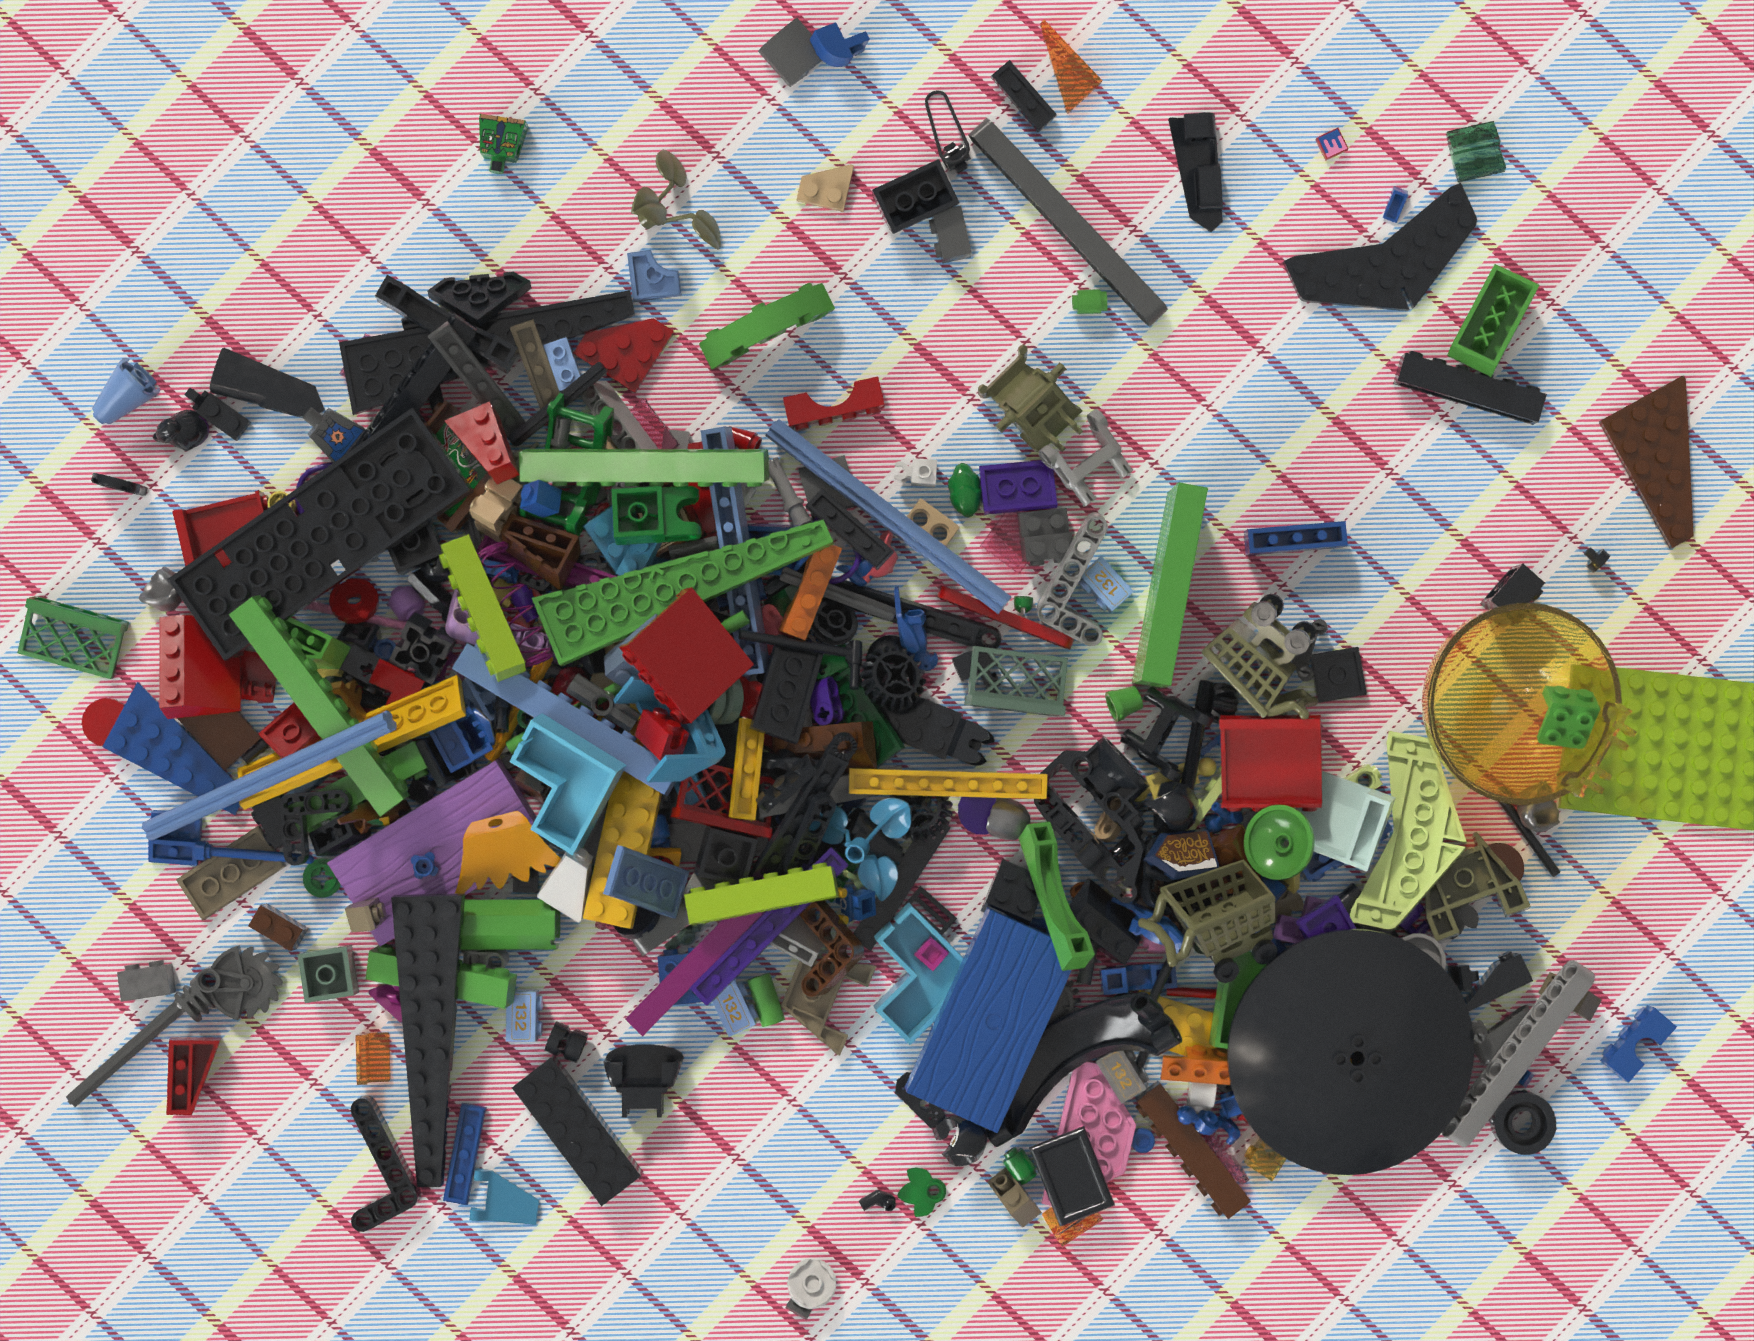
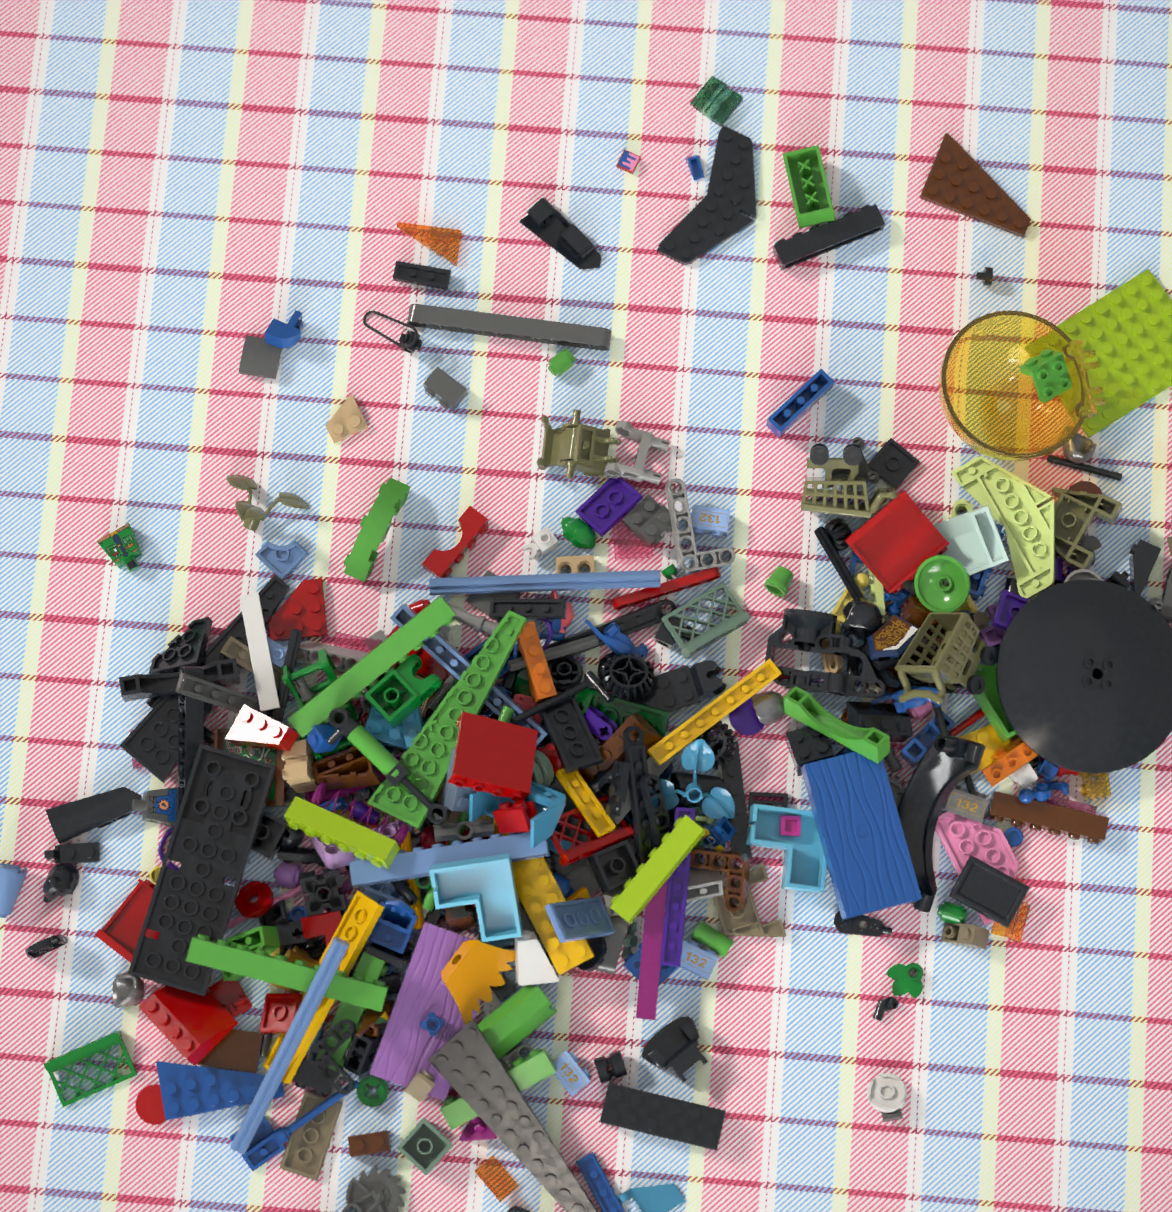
camera: 35 degrees left, 10 degrees down
(548, 359) = (259, 652): none -> white tile
(578, 569) = (392, 769): none -> piece
(915, 196) = (405, 383): black slope -> none
(967, 1143) = (908, 920): black piece -> none
(1149, 748) = (811, 562): black connector -> none
(1169, 585) = (749, 487): bright green tile -> none
(1516, 586) = (951, 324): black brick -> none

